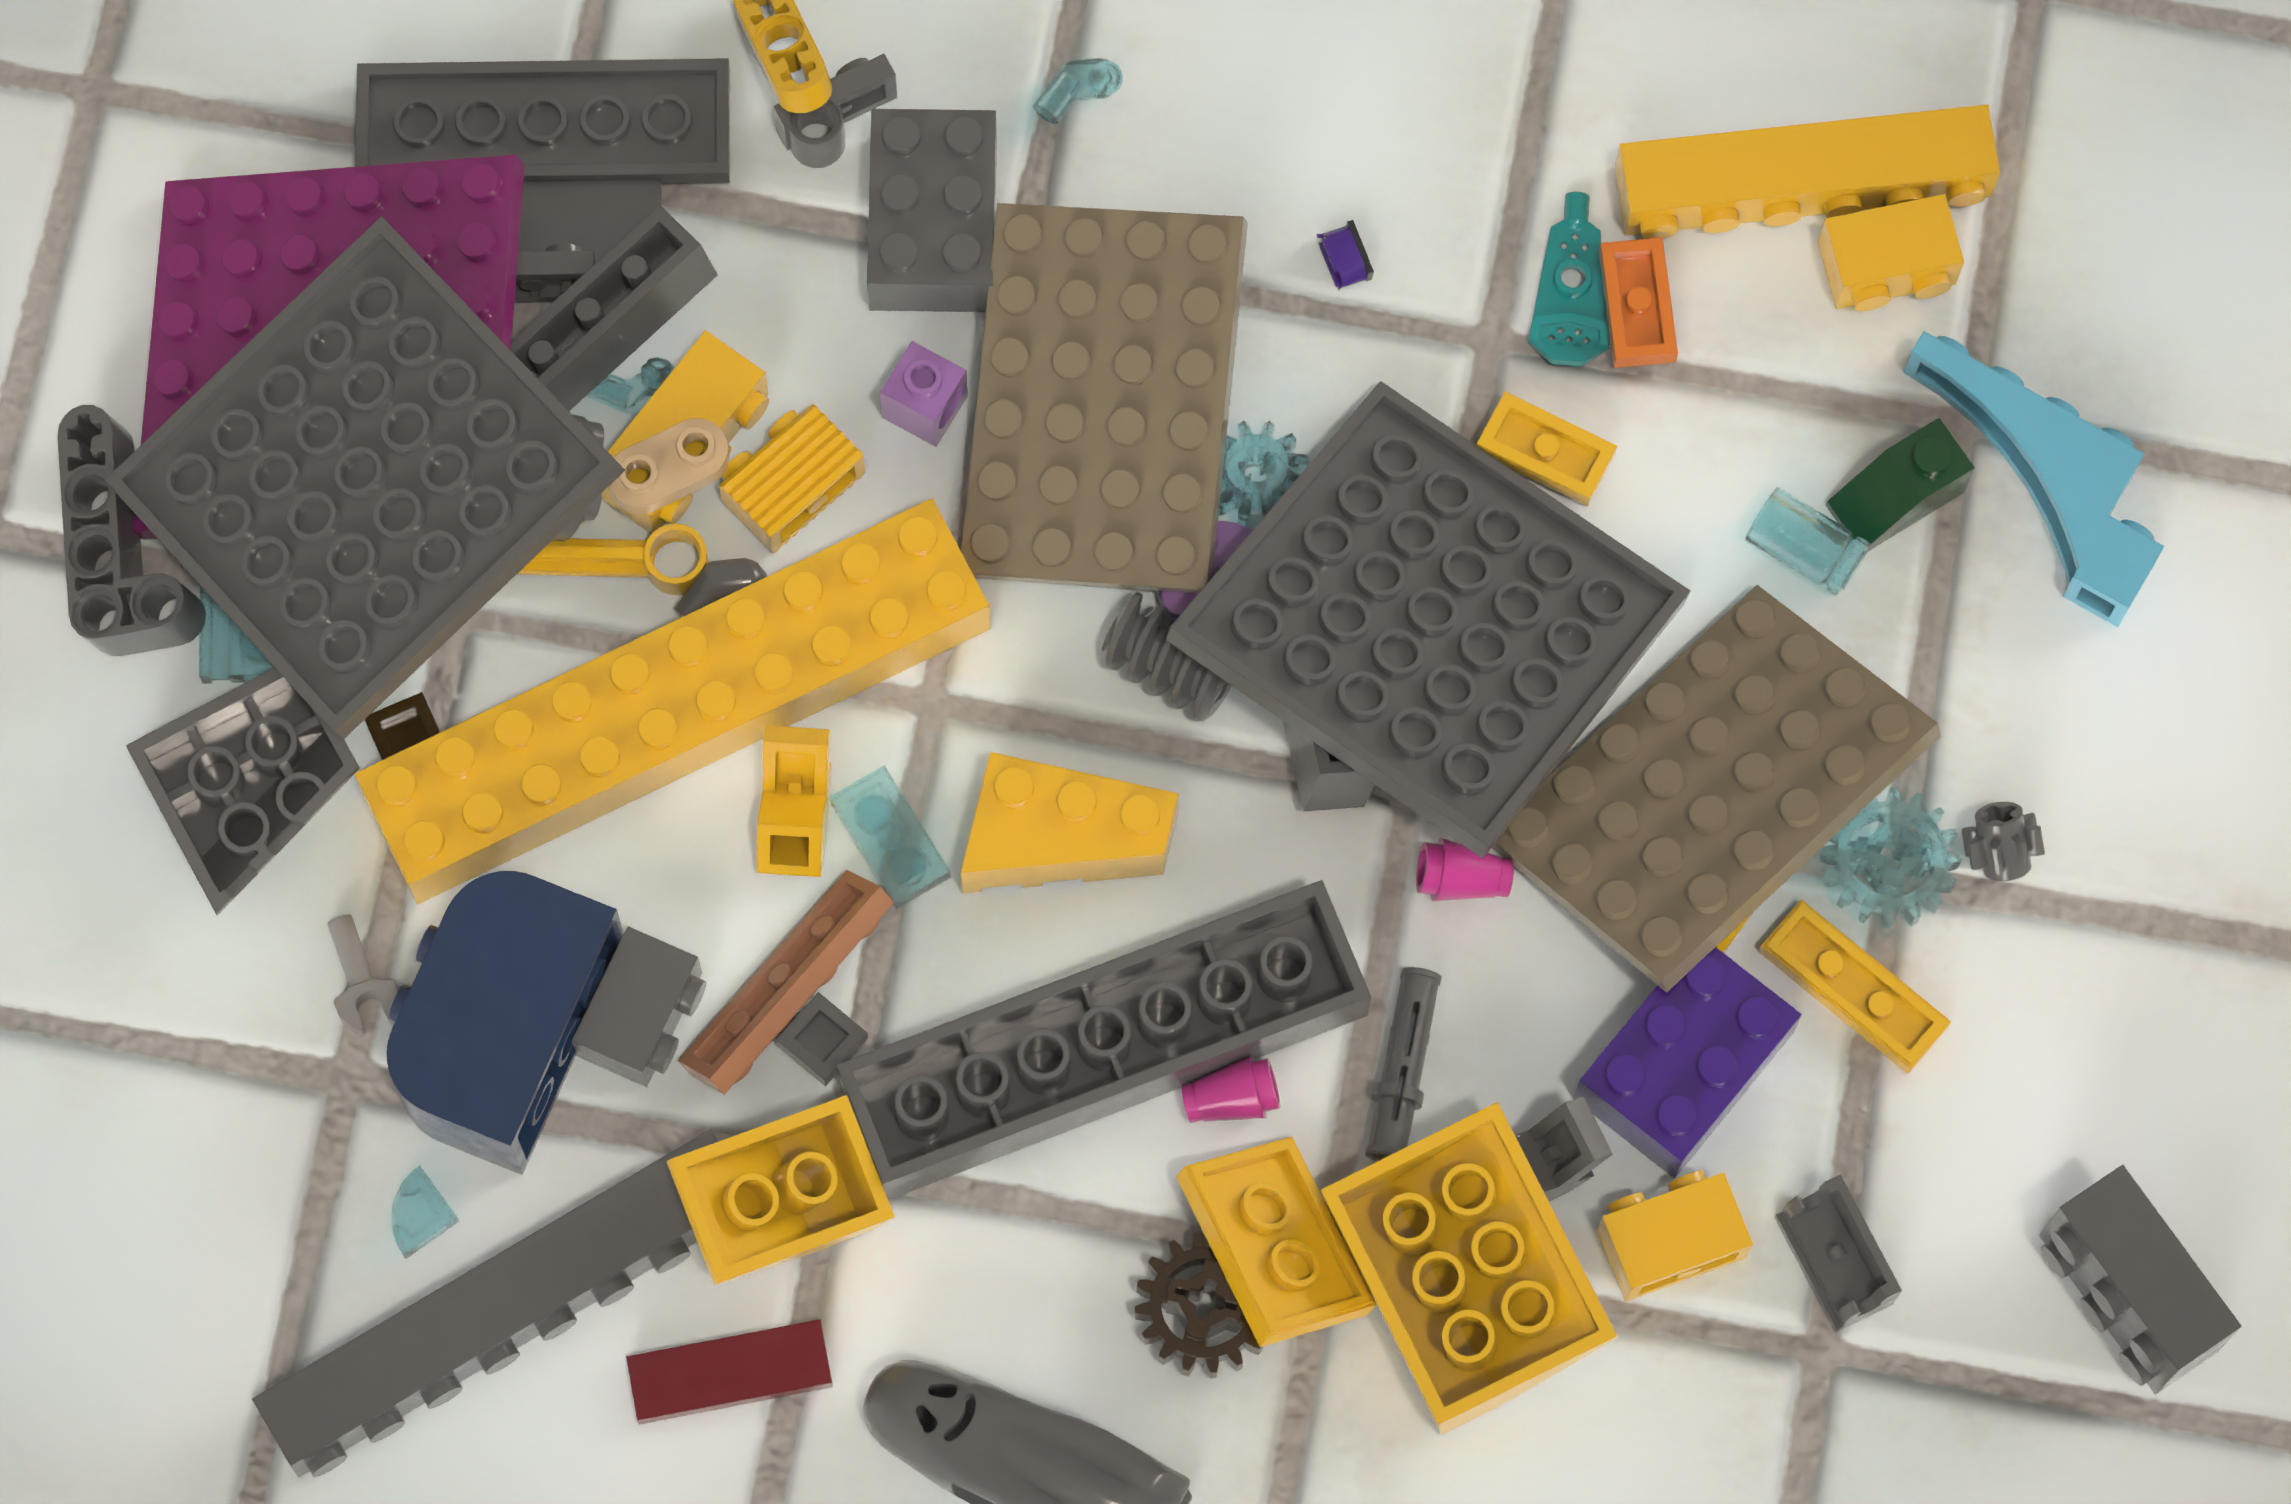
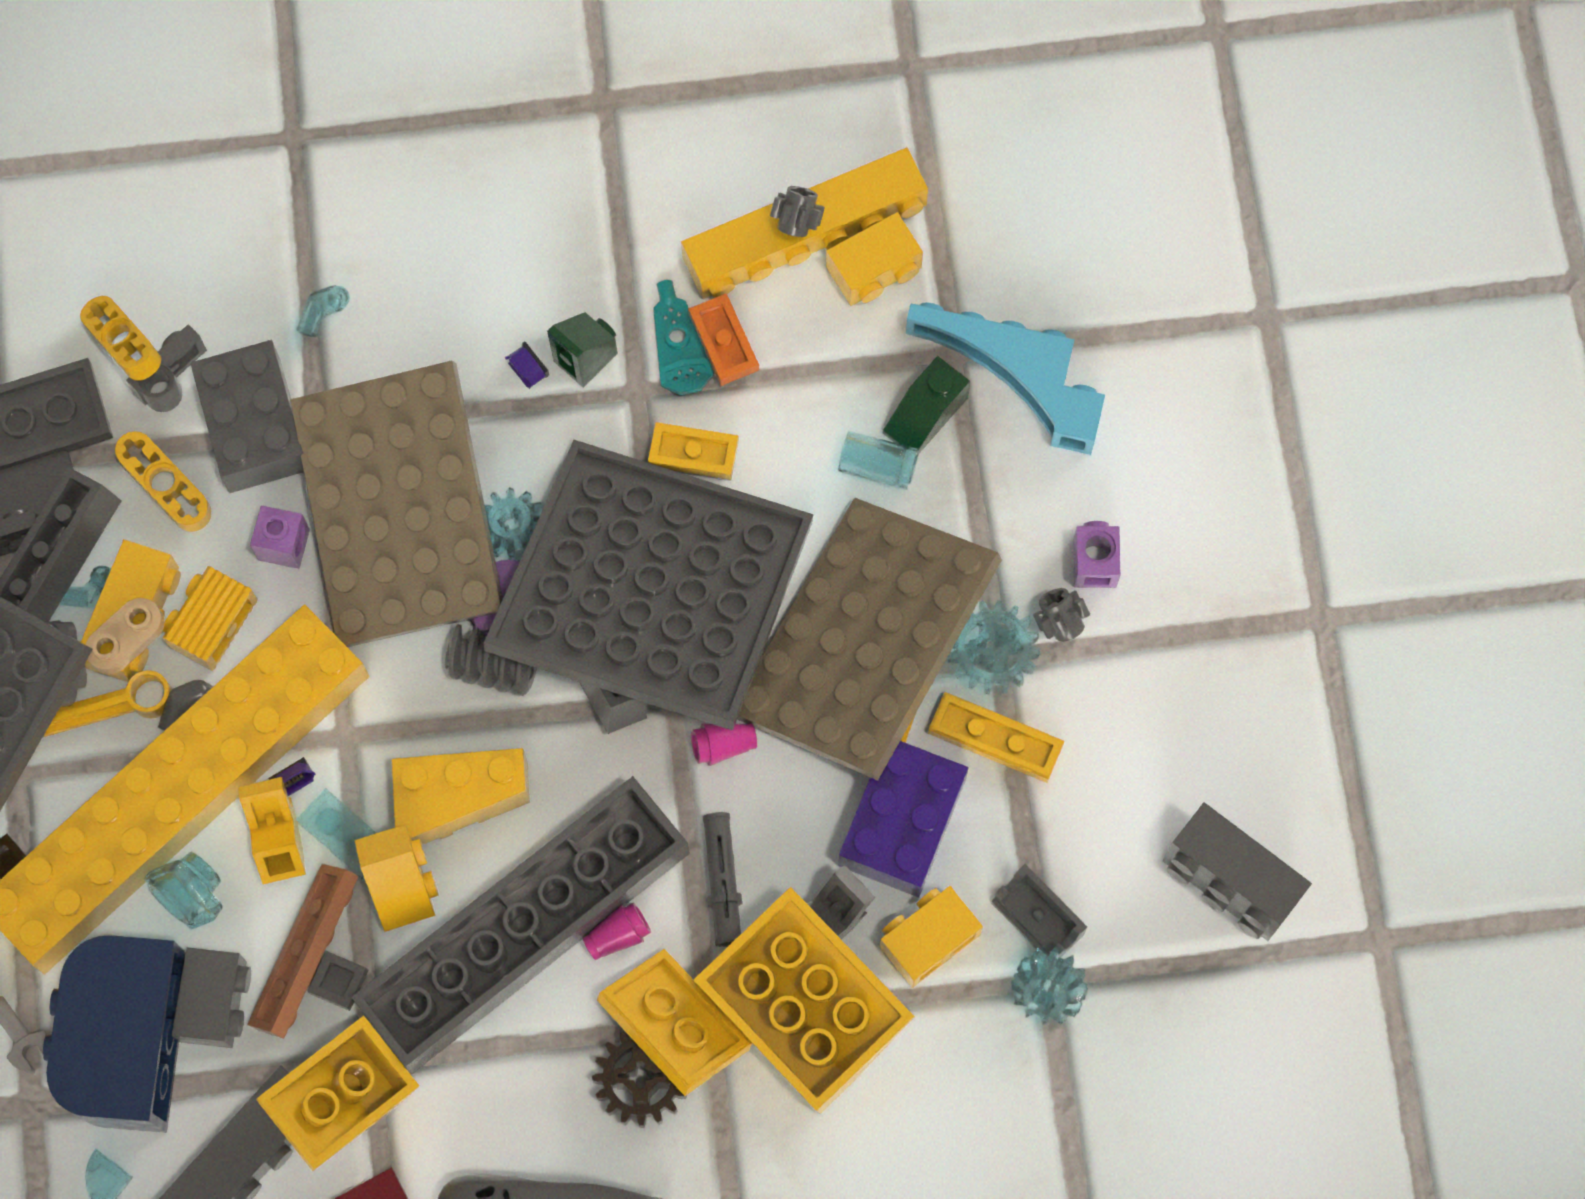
camera: 15 degrees left, 0 degrees up
(646, 844) = (185, 888): none -> clear light blue piece
(778, 220) = (152, 453): none -> yellow beam
(848, 736) = (295, 776): none -> dark purple piece
(947, 919) = (395, 877): none -> yellow brick
(1432, 252) = (582, 346): none -> dark green slope
(1800, 150) = (797, 211): none -> dark grey gear
(1821, 1357) = (1049, 986): none -> clear light blue gear
(2075, 798) = (1092, 572): none -> medium lavender brick

